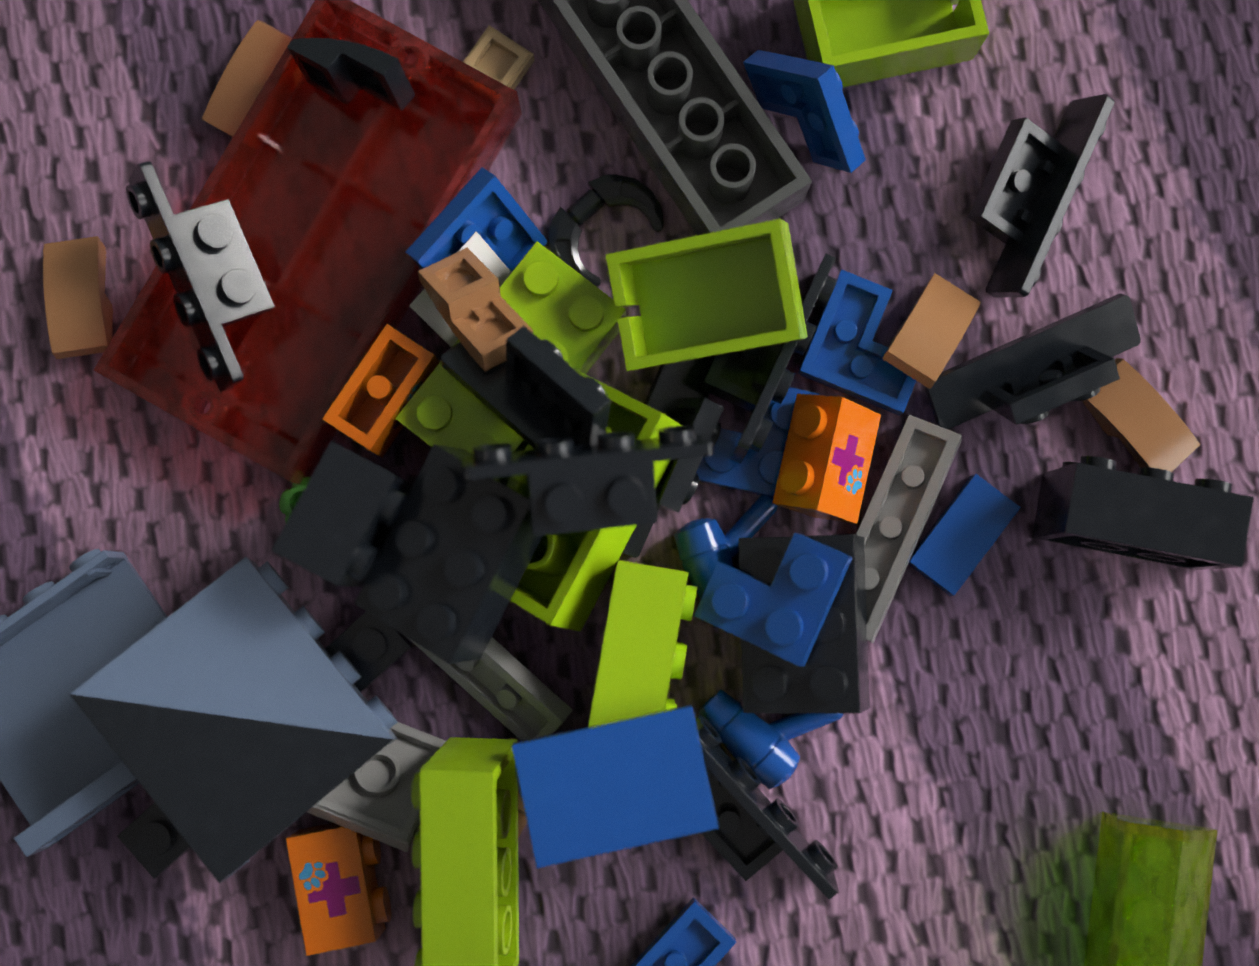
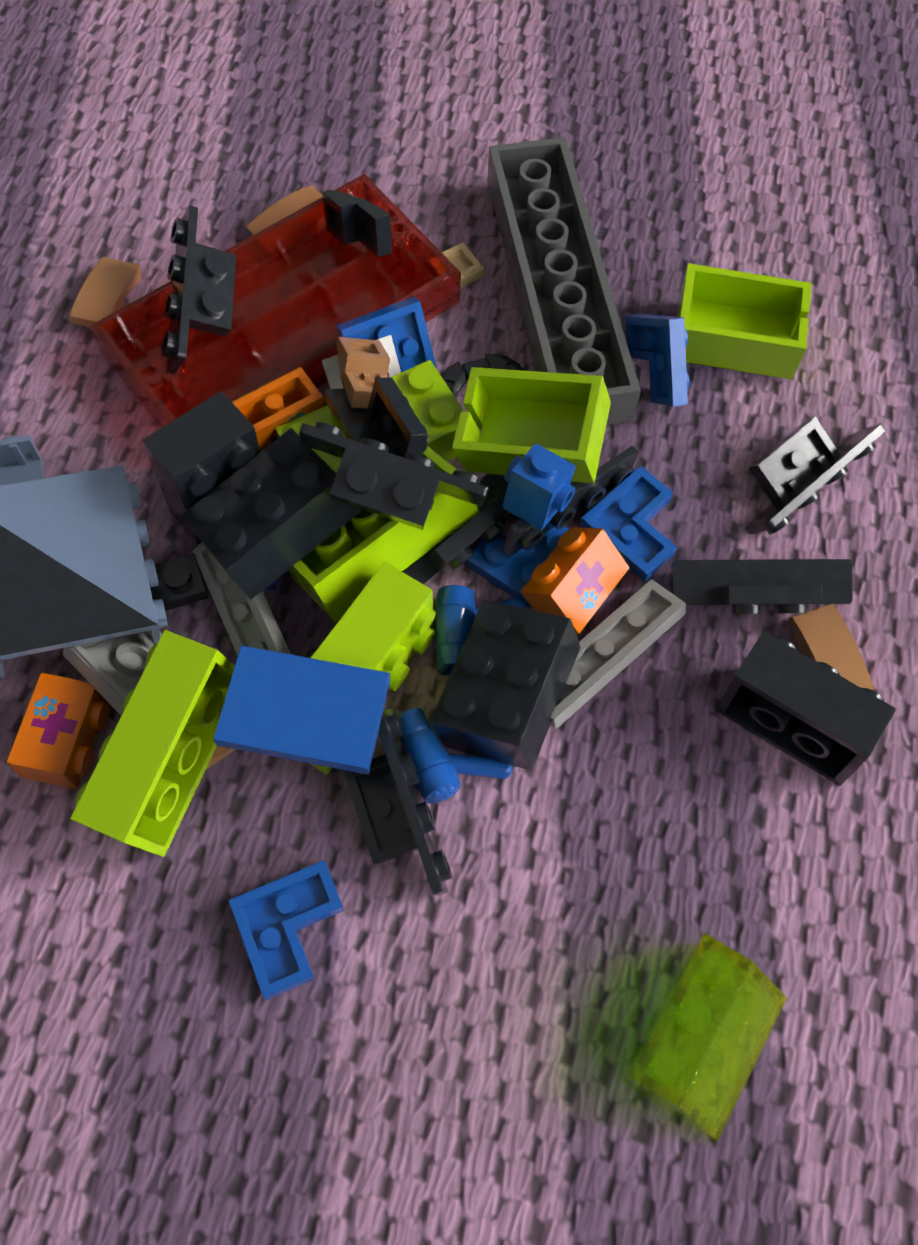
camera: 20 degrees right, 20 degrees down
(756, 388) = (538, 486): none -> blue brick
(780, 615) = (496, 650): blue plate -> none
(932, 331) = (690, 527): medium nougat slope -> none
(963, 534) = (659, 683): blue tile -> none

